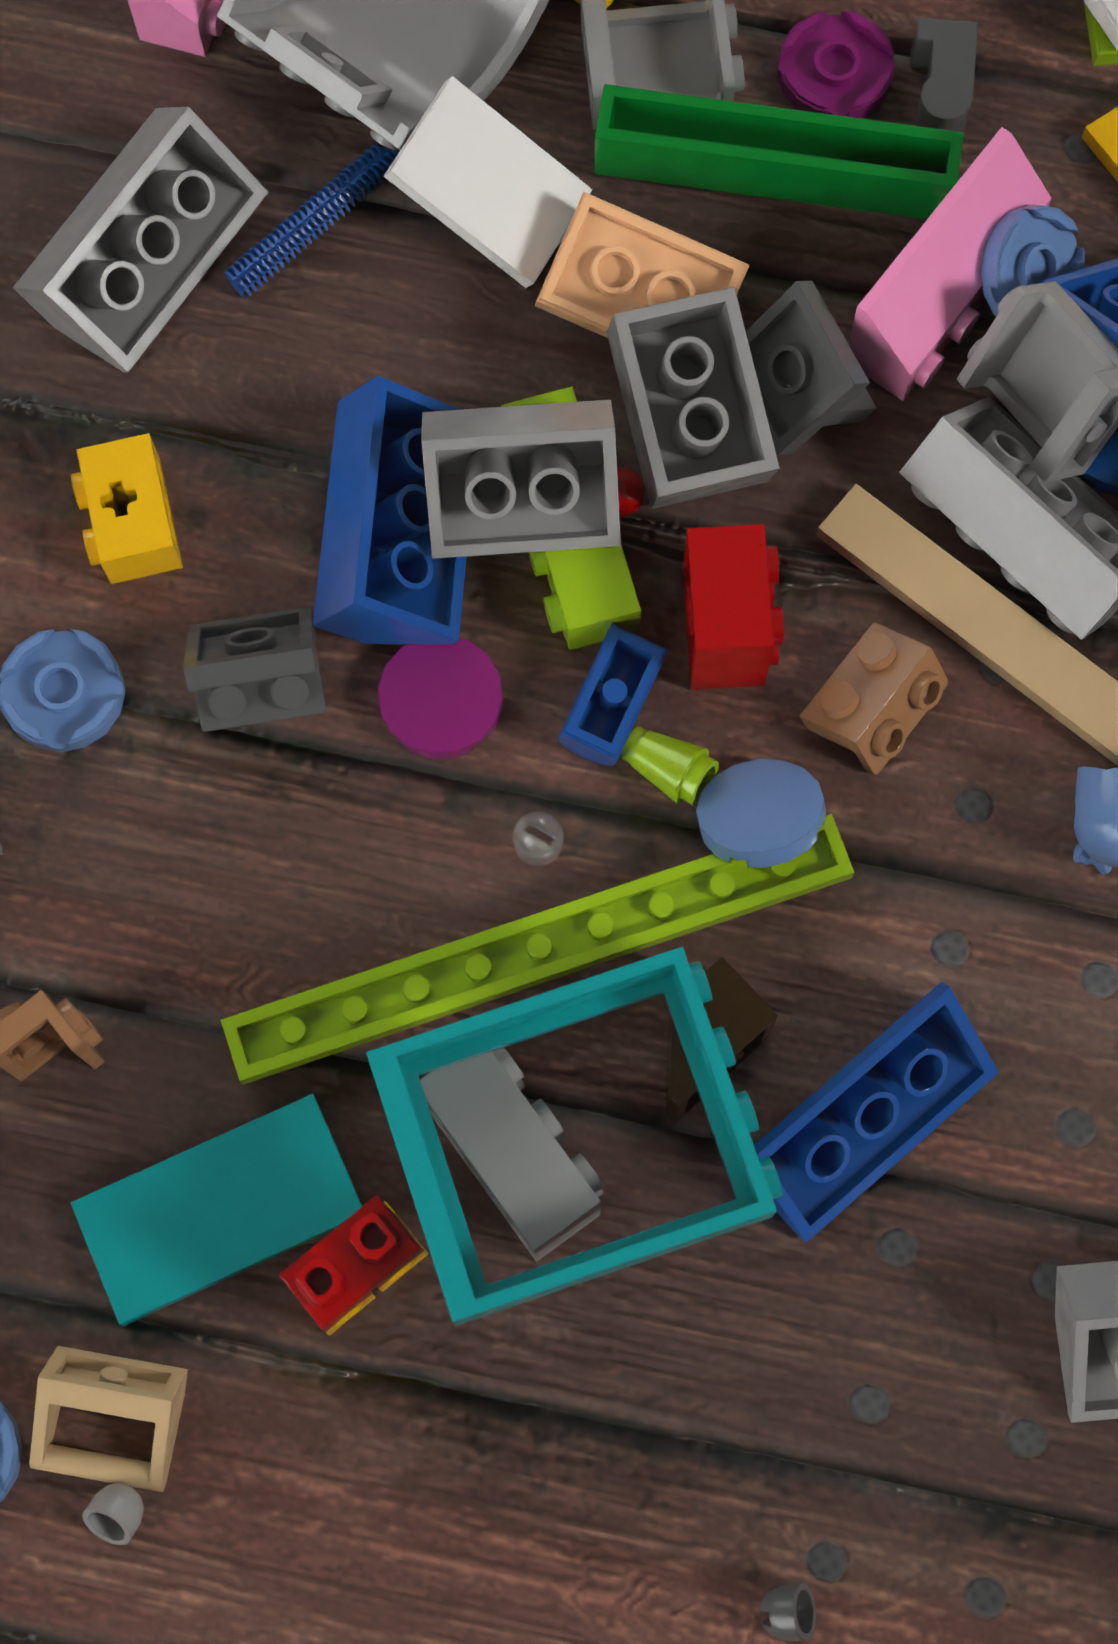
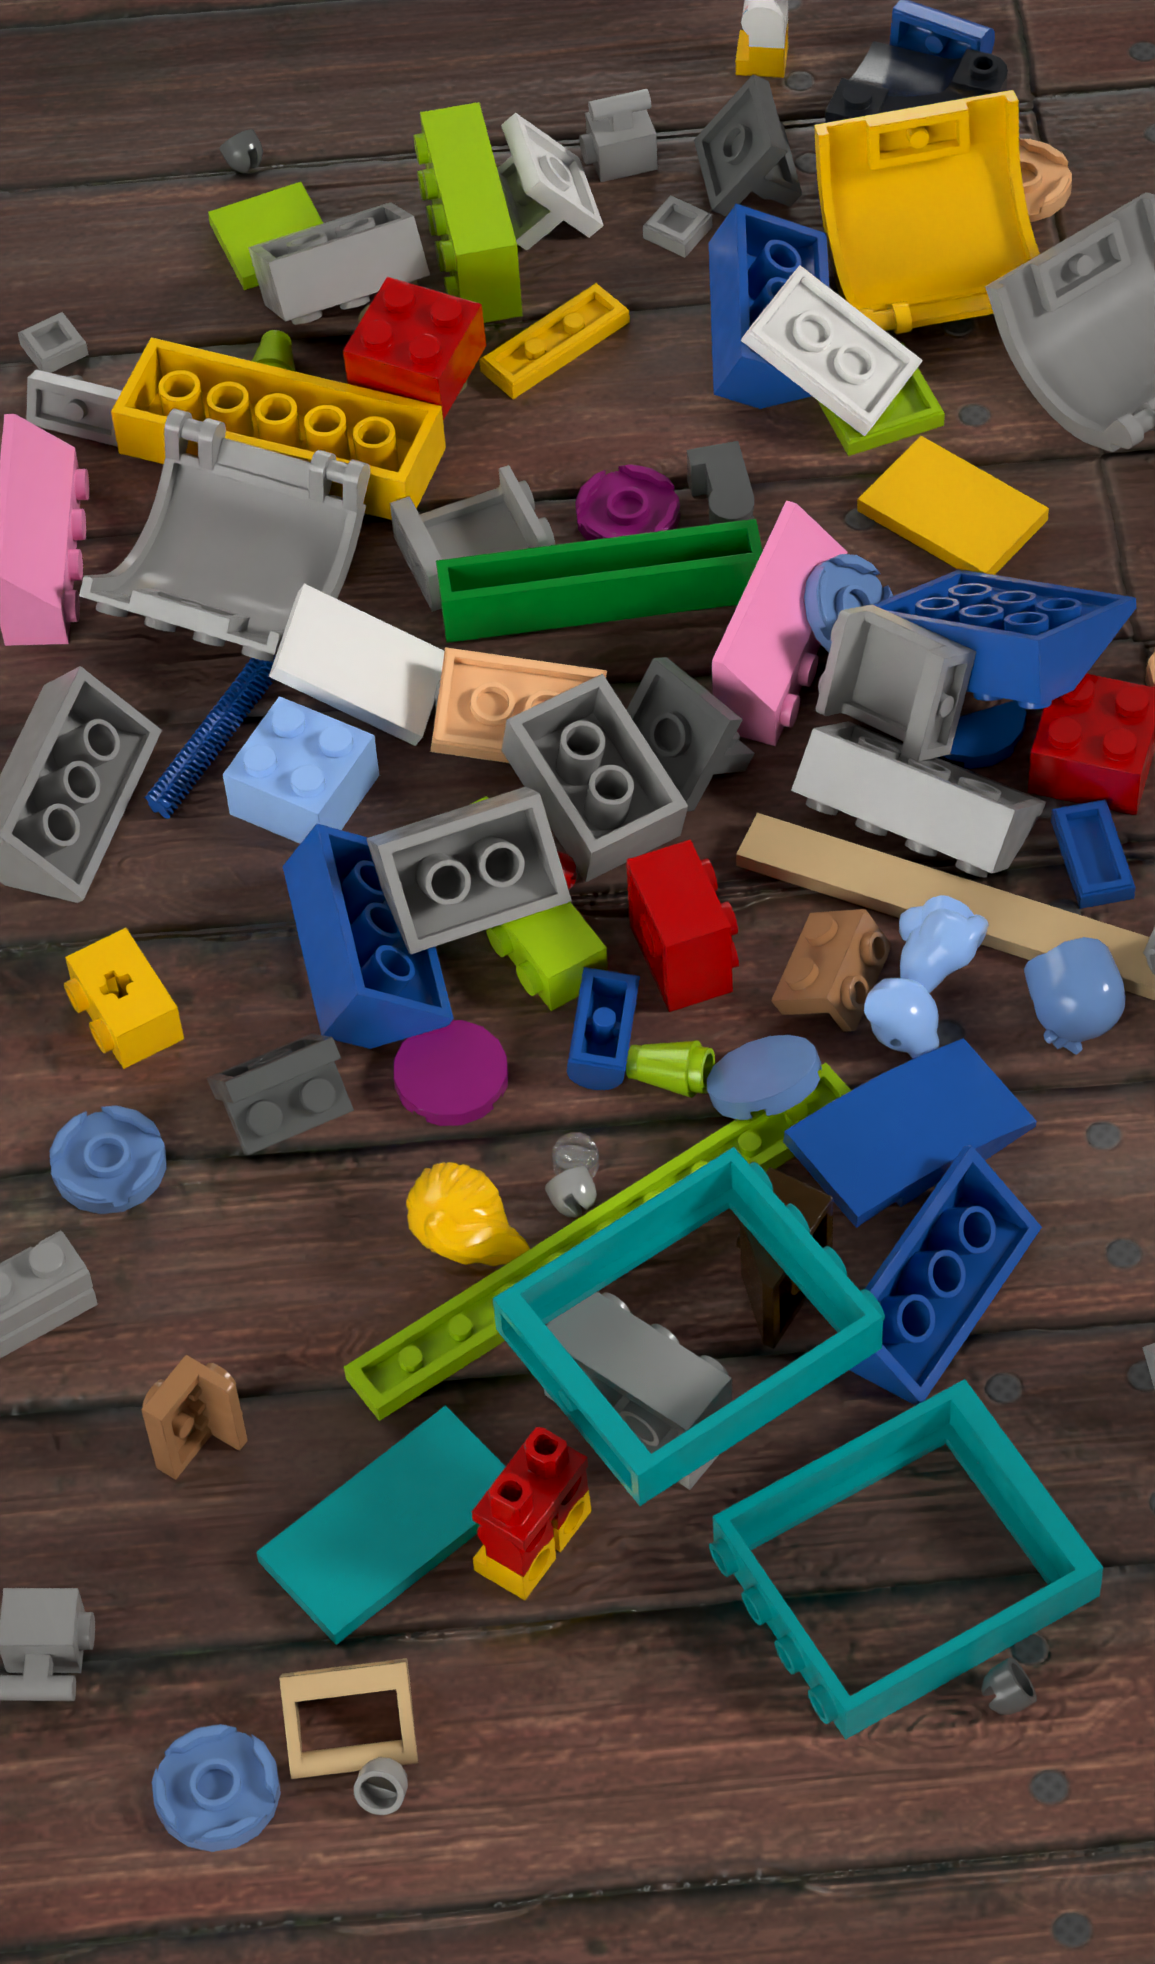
camera: 15 degrees left, 20 degrees down
(391, 294) = (300, 771): none -> light blue brick
(391, 885) = (462, 1216): none -> yellow hair
(521, 883) = (571, 1190): none -> light grey hinge
(866, 1392) = (1005, 1481): none -> teal window
(892, 925) = (906, 1129): none -> blue slope
(998, 712) = (938, 942): none -> light blue animal

